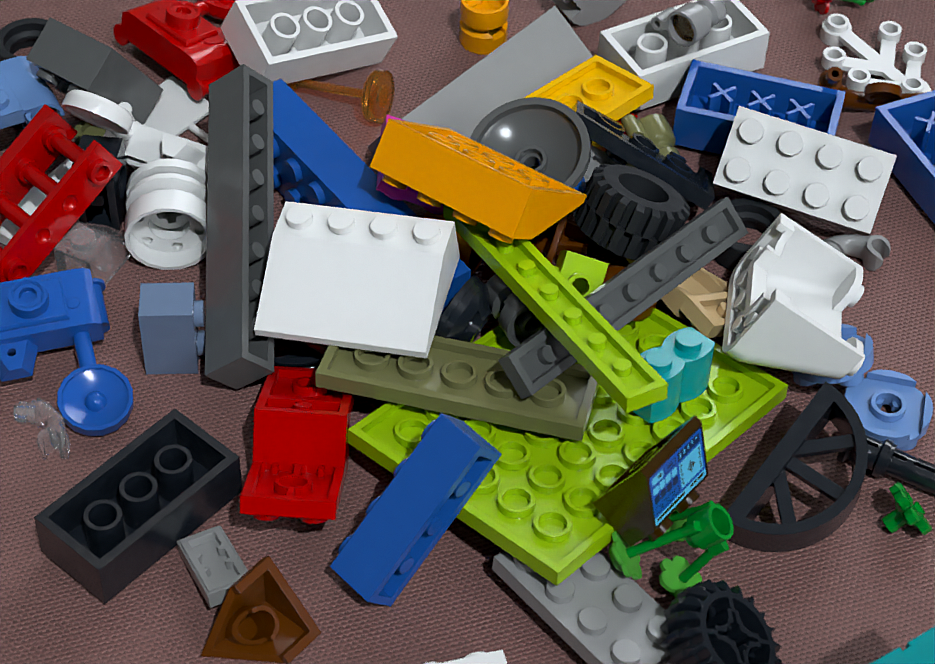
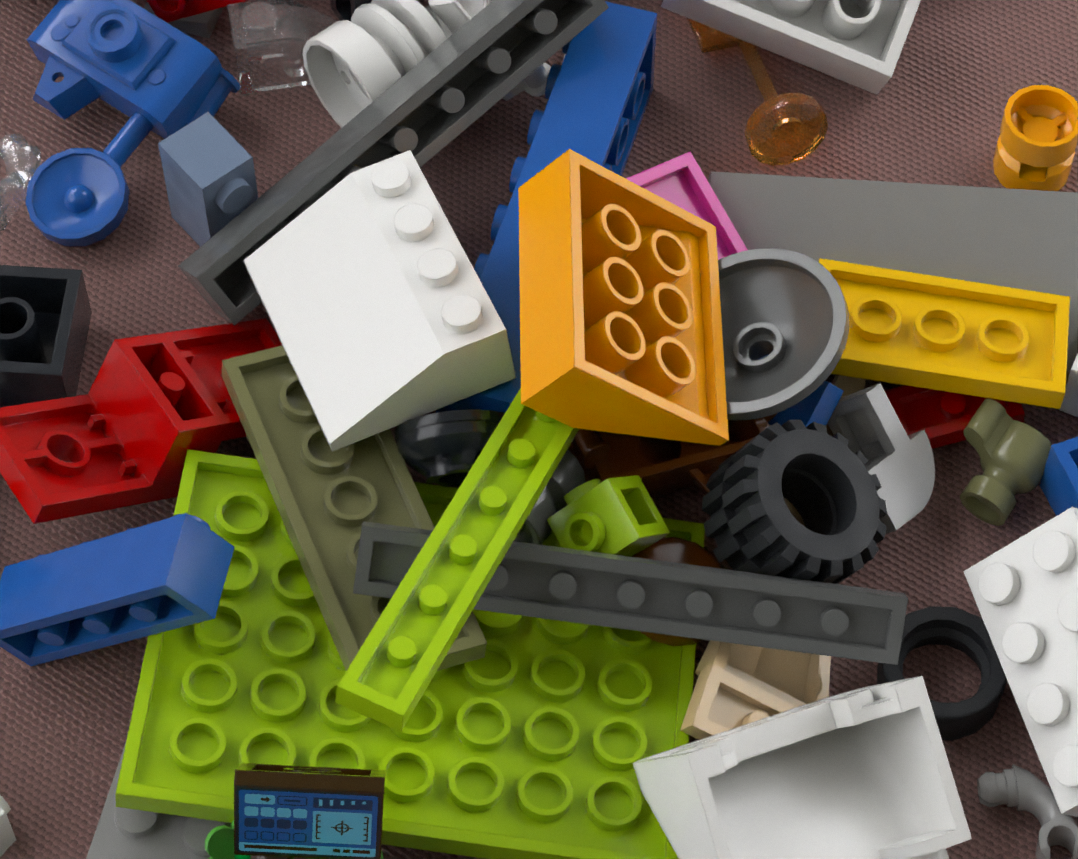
camera: 55 degrees right, 10 degrees up
(644, 155) = (920, 462): black wing -> none
(686, 367) = (543, 723): teal brick -> none

